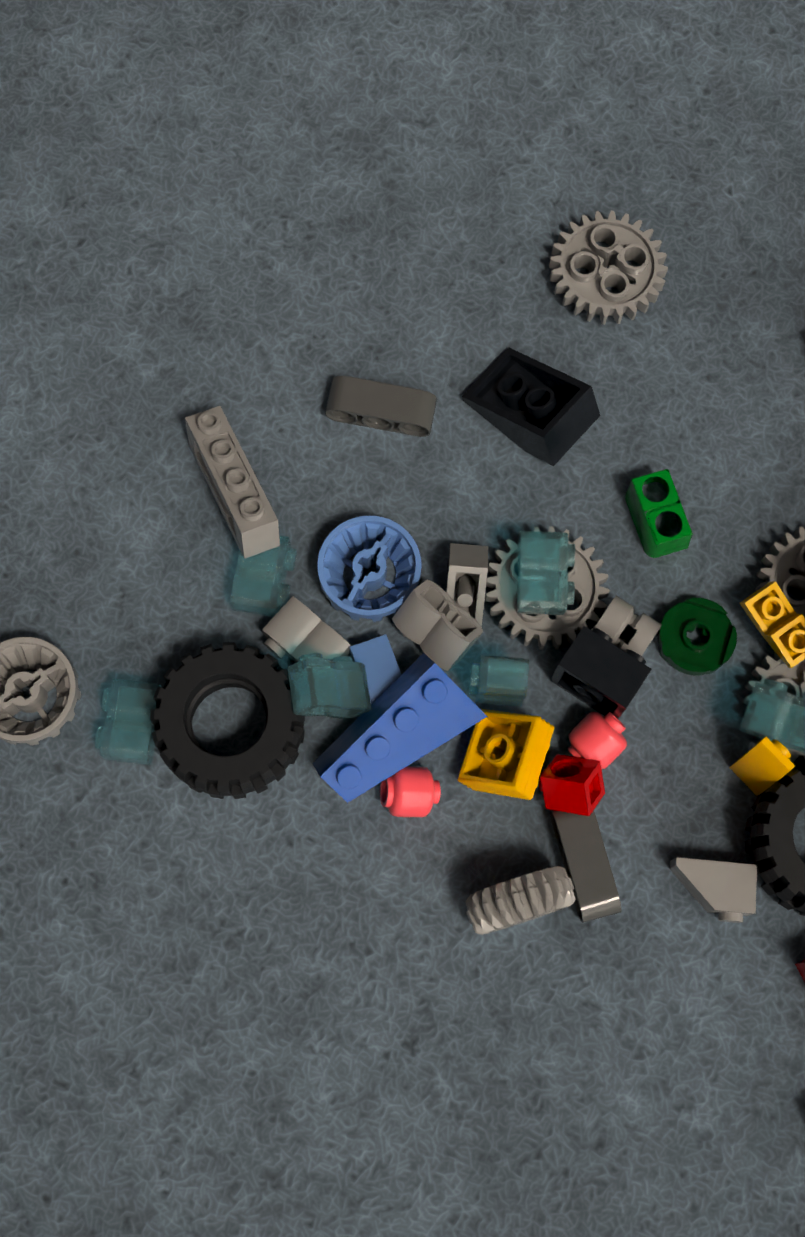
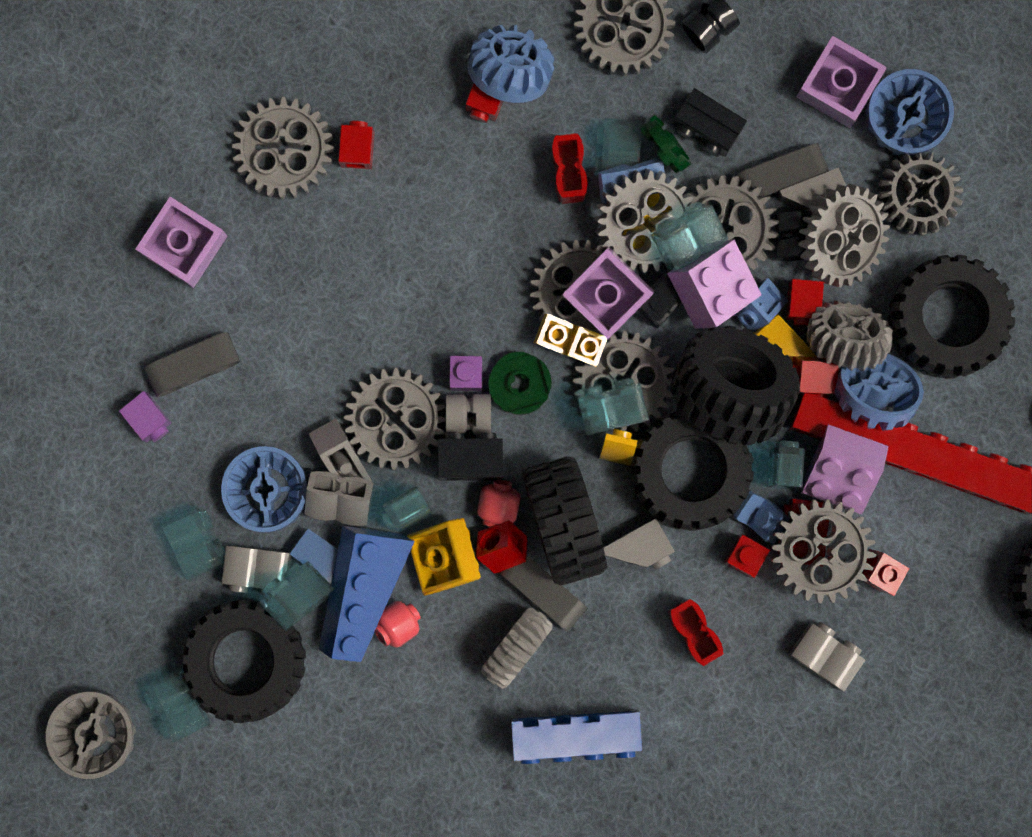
camera: 30 degrees left, 10 degrees up
(232, 482) = (128, 494): light grey brick -> none
(301, 425) = (146, 418): none -> medium lavender brick
(451, 286) = (181, 242): none -> lavender brick
(522, 1041) = (576, 736): none -> wedge
(534, 404) = (298, 290): black slope -> none
(543, 573) = (386, 416): clear light blue brick -> none
(649, 588) = (466, 373): none -> medium lavender brick
(653, 542) = (423, 318): green piece -> none
(663, 798) = (565, 520): none -> black tyre
(681, 309) = (356, 145): none -> red brick
(723, 1004) = (700, 640): none -> red brick

